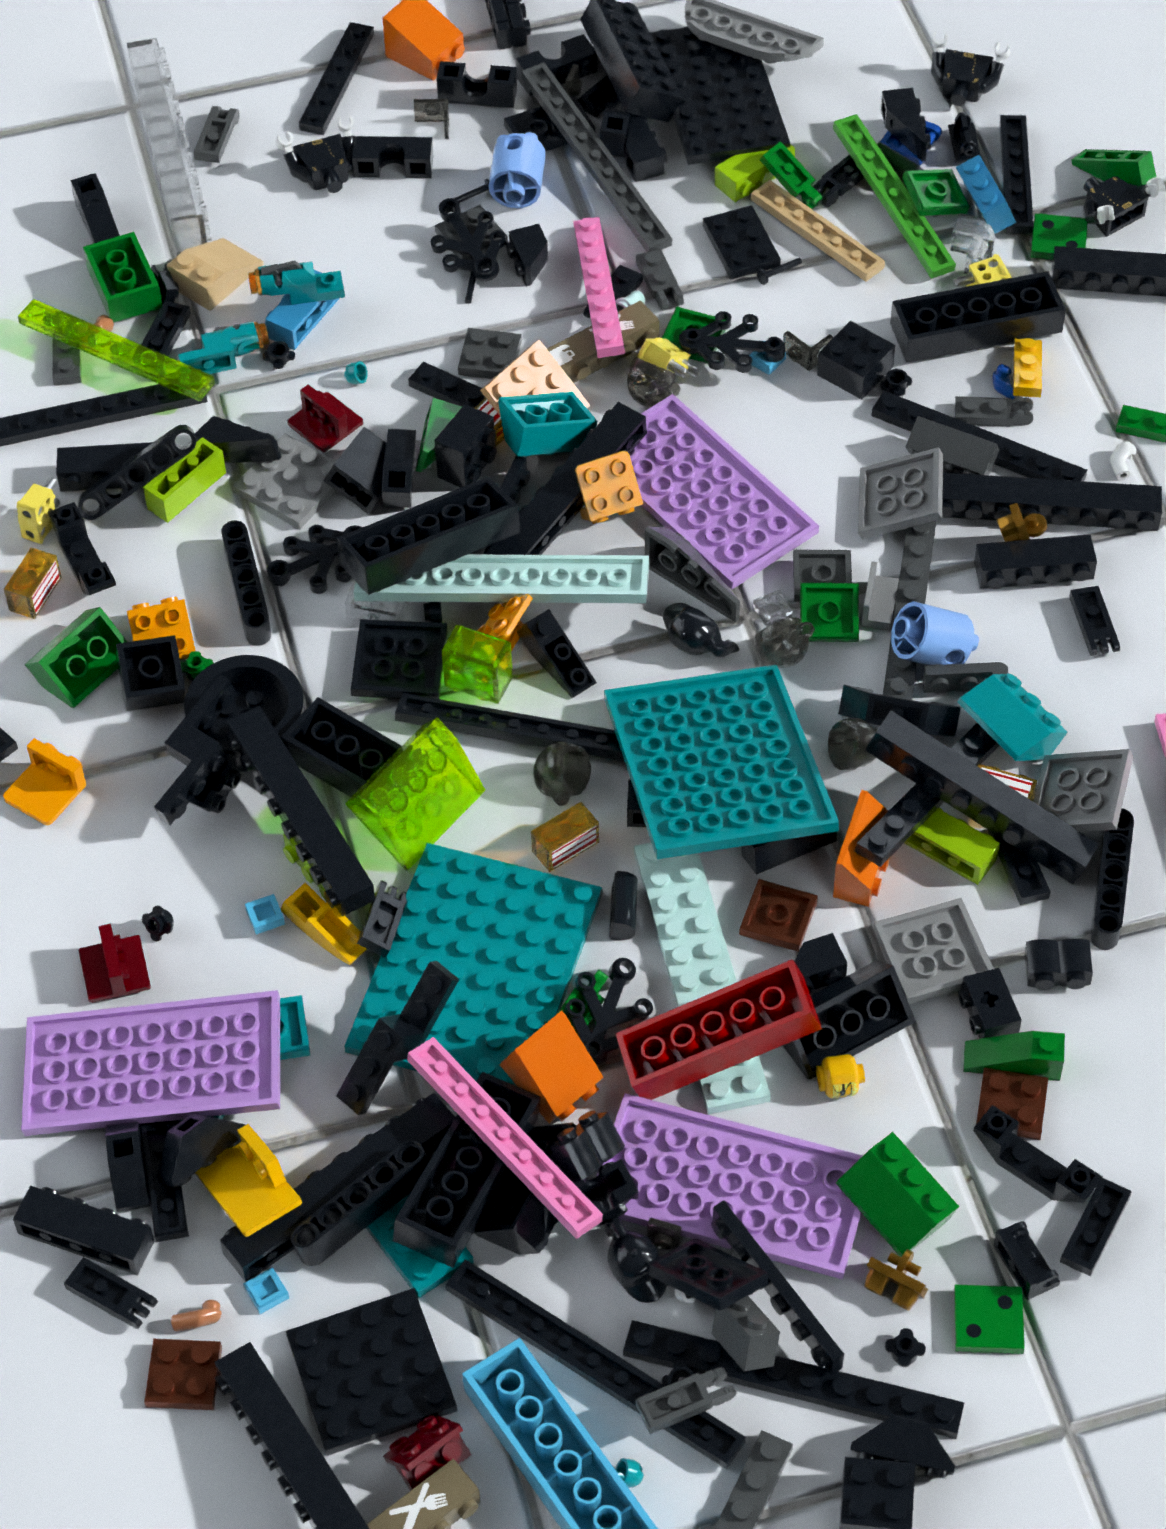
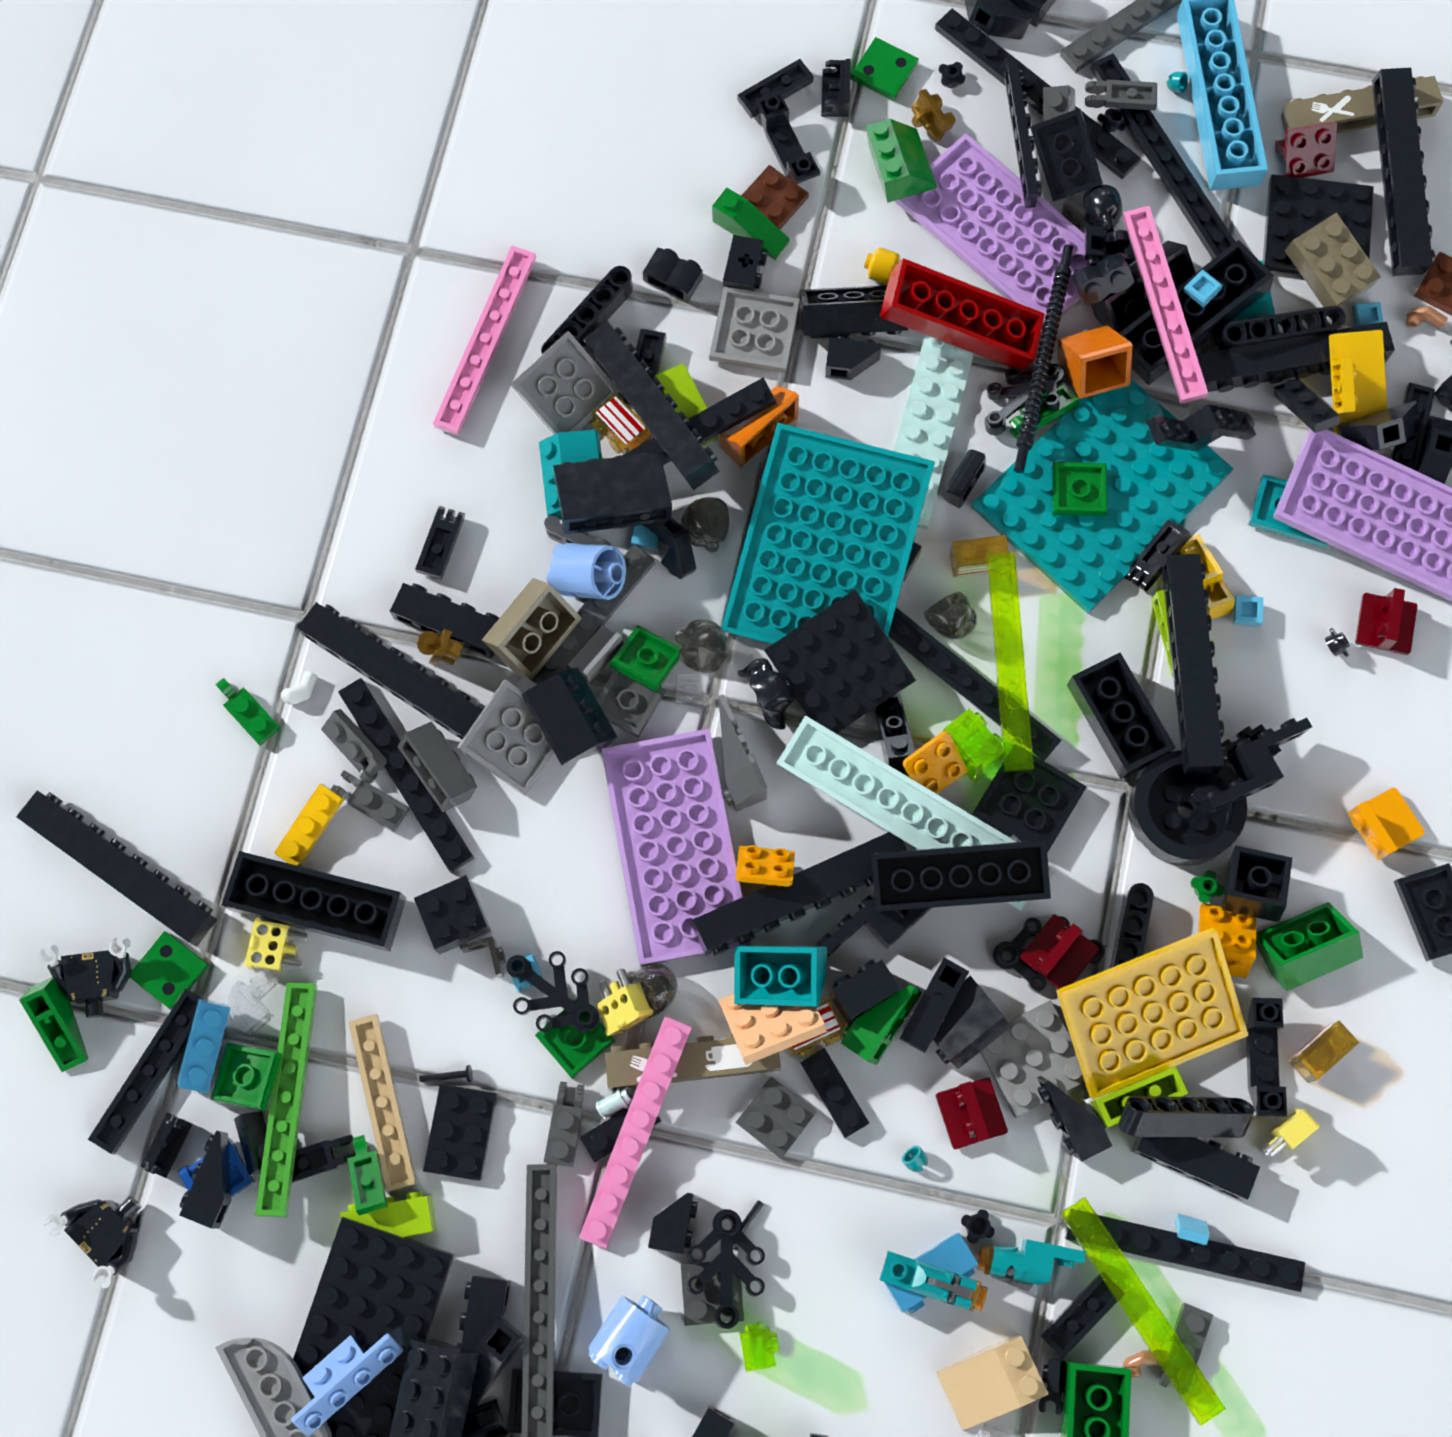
camera: 150 degrees left, 20 degrees up
(96, 420) = (1192, 1229): none -> medium azure tile
(202, 532) = (1152, 1013): none -> yellow plate
(293, 1128) = (1306, 405): none -> black plate
(308, 546) = (1059, 952): none -> dark red bracket
(334, 1301) = (1332, 262): none -> dark tan brick
(413, 203) = (758, 1346): none -> clear neon green brick
(418, 793) = (1088, 643): clear neon green slope -> none
(469, 1173) = (1202, 288): none -> medium azure tile
(472, 193) = (684, 1351): black pin -> none
(482, 746) = (1010, 661): none -> clear neon green plate
(497, 939) = (1079, 489): none -> green tile
(637, 1149) = (1044, 355): none -> black hose
(642, 677) = (840, 664): none -> black plate
(718, 58) = (341, 1377): none -> light blue bracket
(778, 915) = (851, 412): copper plate -> none
(863, 524) = (569, 716): none -> black slope
(896, 382) = (431, 869): black plate -> none
(951, 568) = (532, 628): none -> dark tan brick
(959, 689) = (612, 492): none -> black panel
(1001, 381) = (340, 827): blue arm -> none
(1036, 435) = (354, 745): none -> dark grey plate

